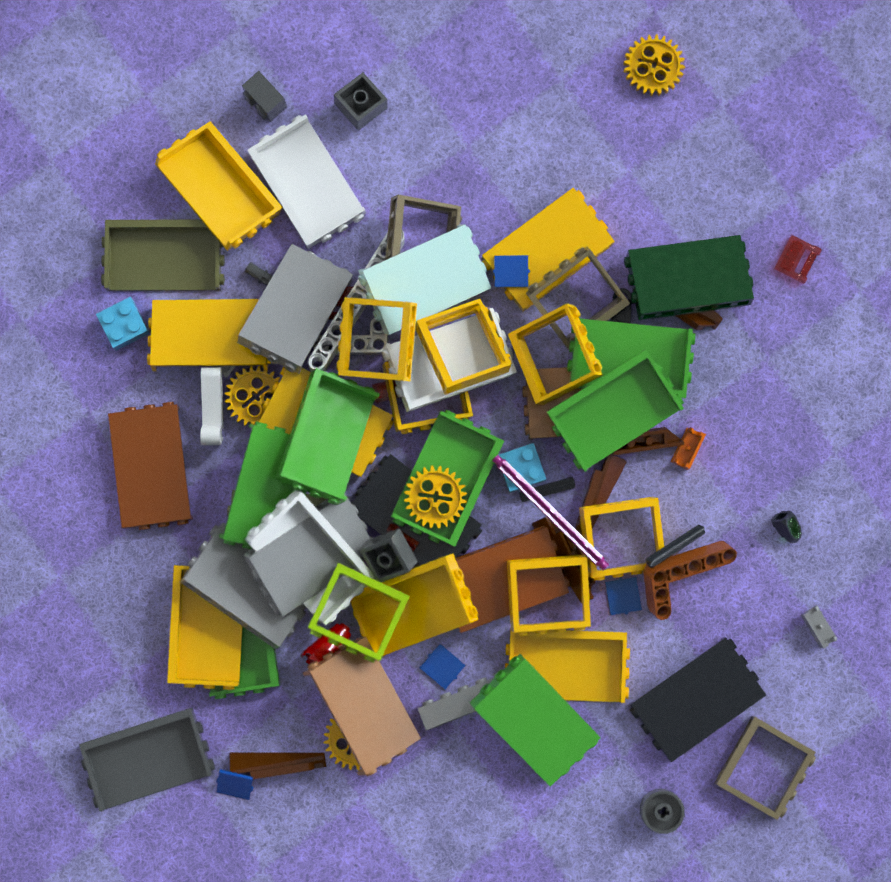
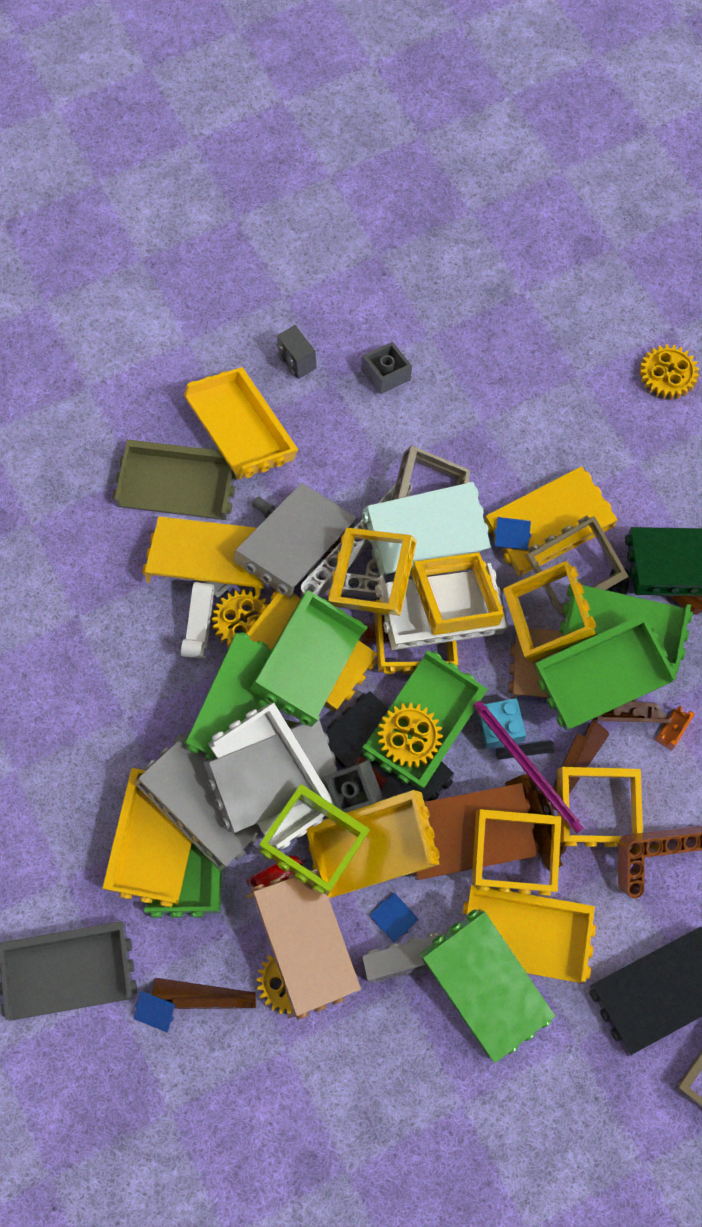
camera: 10 degrees right, 15 degrees down
(123, 323) = (126, 535): medium azure brick -> none
(149, 466) = (126, 674): dark orange panel -> none
(306, 181) = (324, 433): white panel -> none
(623, 596) = (593, 870): blue piece -> none
(673, 813) = (628, 1109): dark grey wheel -> none
(675, 546) = (653, 822): black axle -> none

